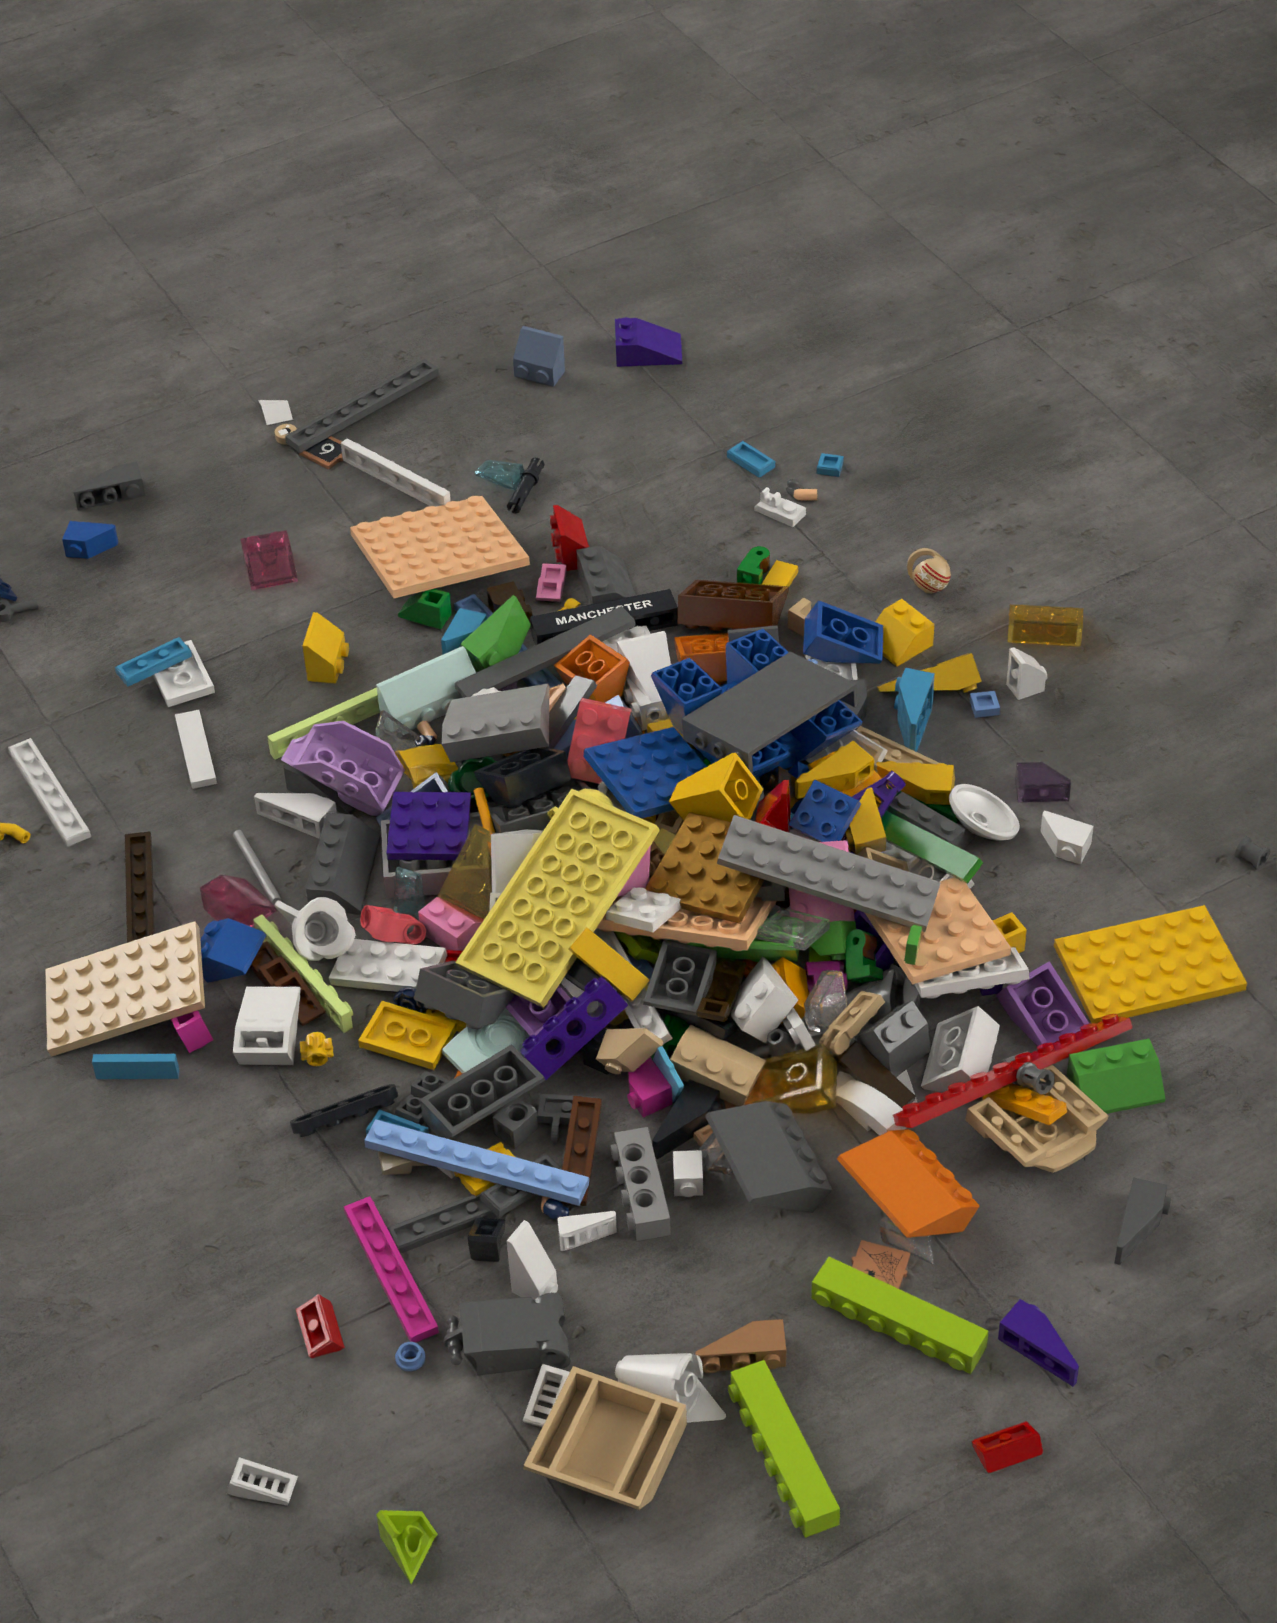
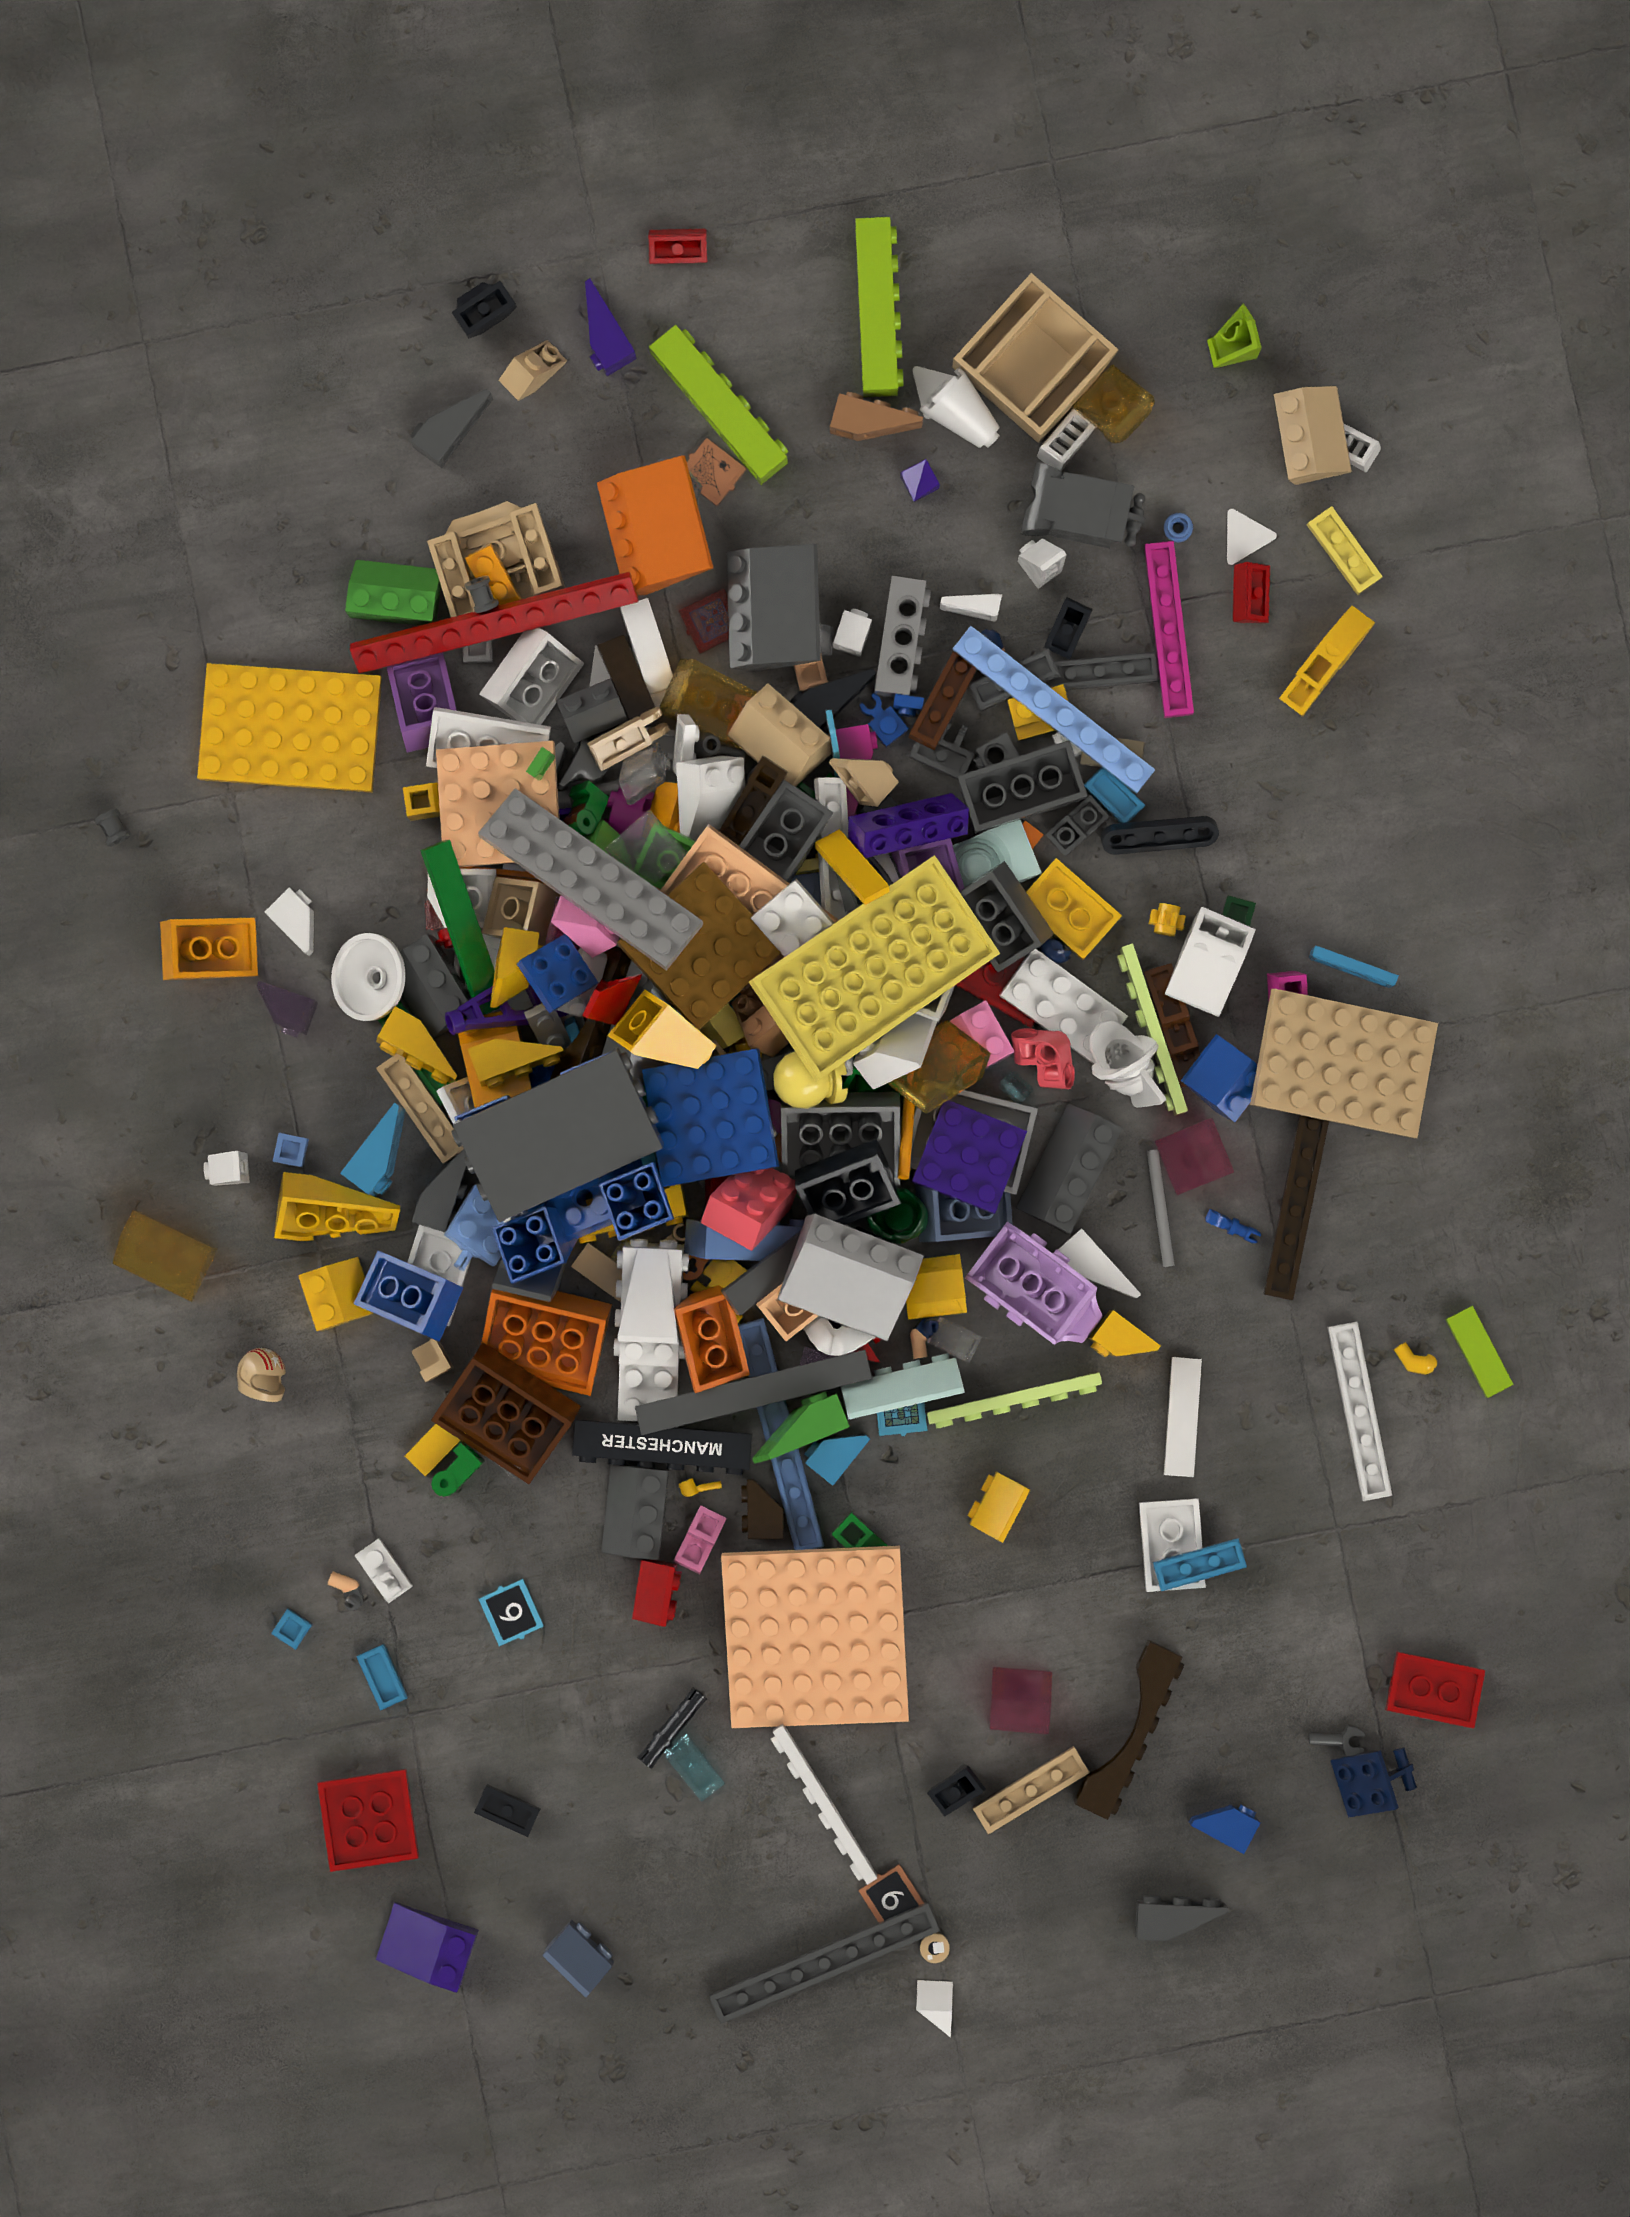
camera: 155 degrees left, 40 degrees up
(174, 870) = (1232, 1226): none -> blue piece
(188, 537) = (1102, 1786): none -> dark brown arch
(226, 1286) = (1326, 660): none -> yellow slope
(238, 1386) = (1344, 550): none -> light yellow plate
(243, 521) = (1030, 1790): none -> tan plate
(254, 1075) = (1238, 910): none -> dark green plate
(257, 765) = (1119, 1337): none -> yellow slope
(295, 506) = (956, 1790): none -> black slope
(301, 1468) = (1312, 433): none -> tan slope
(341, 1375) = (1245, 536): none -> white sticker
(508, 1433) = (1115, 405): none -> clear yellow slope
(606, 1134) = (908, 705): none -> blue plate
(625, 417) = (507, 1810): none -> black plate
(628, 1118) = (885, 723): none -> blue plate
(674, 514) = (511, 1612): none -> piece
(677, 1317) = (919, 480): none -> dark purple slope
(721, 389) = (368, 1820): none -> red plate
(827, 1148) = (707, 620): none -> piece
(1088, 1288) = (532, 369): none -> tan slope
(1125, 799) = (208, 948): none -> light orange slope
(1167, 1324) = (483, 308): none -> black slope

